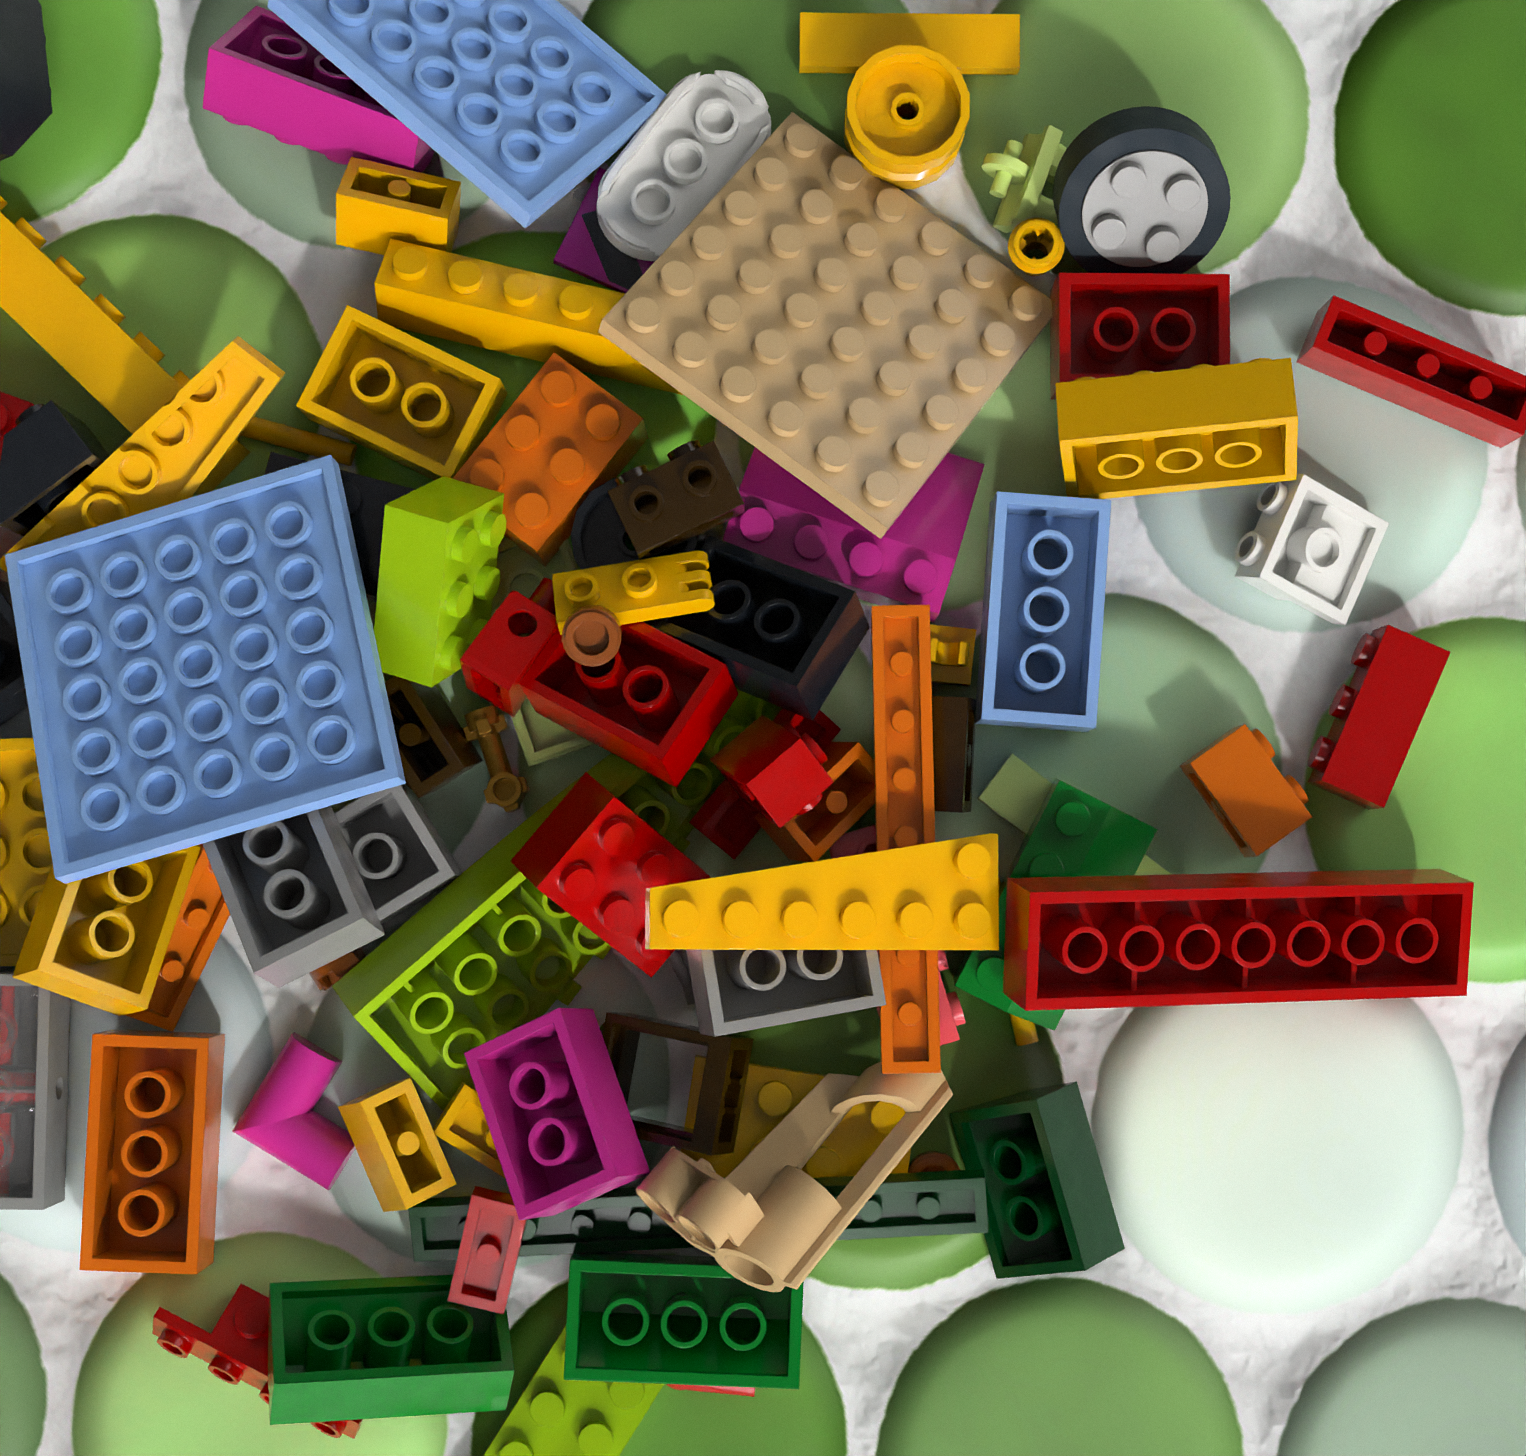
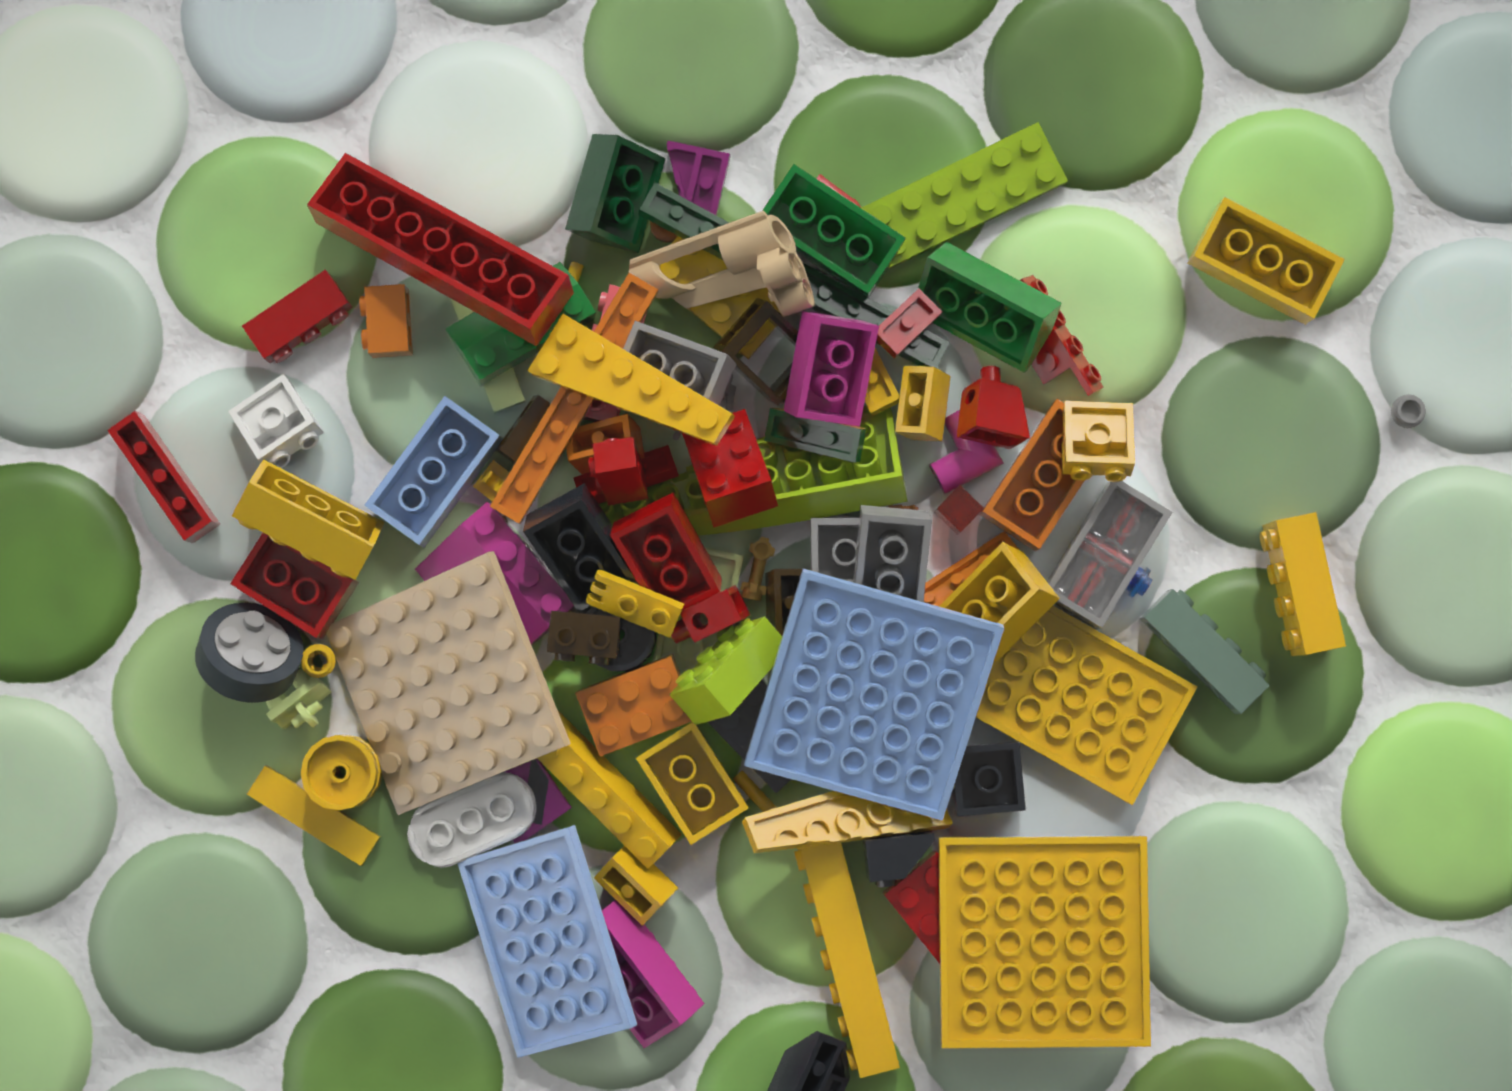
camera: 145 degrees left, 0 degrees up
(90, 1249) = (1098, 440): none -> yellow plate
(253, 1021) = (958, 510): none -> clear red brick
(286, 1196) = (992, 411): none -> red torso
(501, 1004) = (815, 436): none -> plate
(592, 635) = (668, 591): dark orange tile -> none
(932, 1285) = (699, 174): none -> magenta wing

